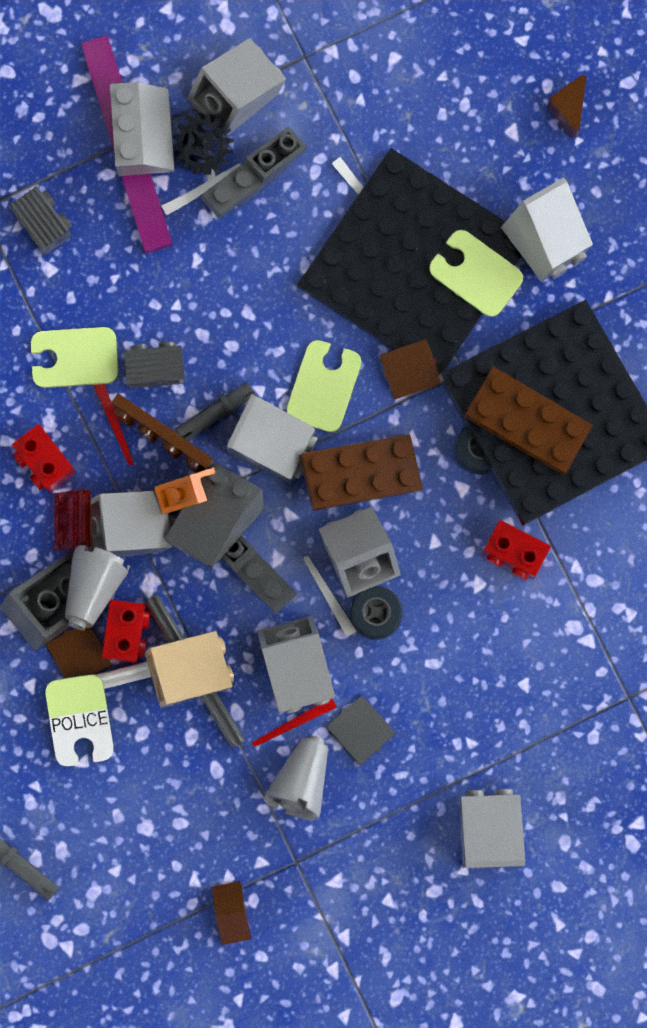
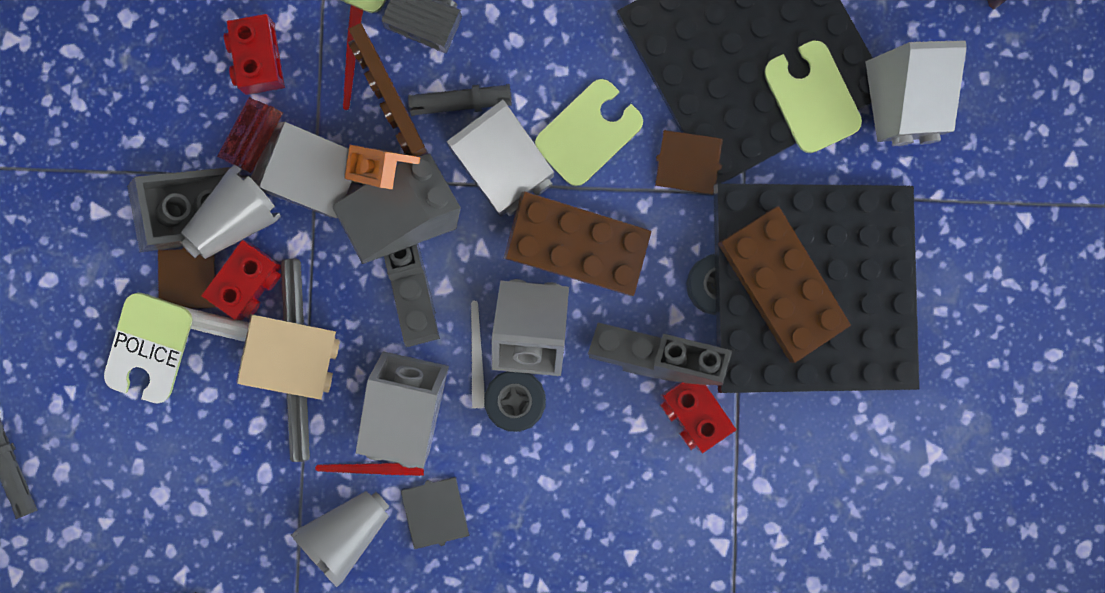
camera: 25 degrees right, 5 degrees up
(468, 523) = (660, 358): none -> dark grey slope

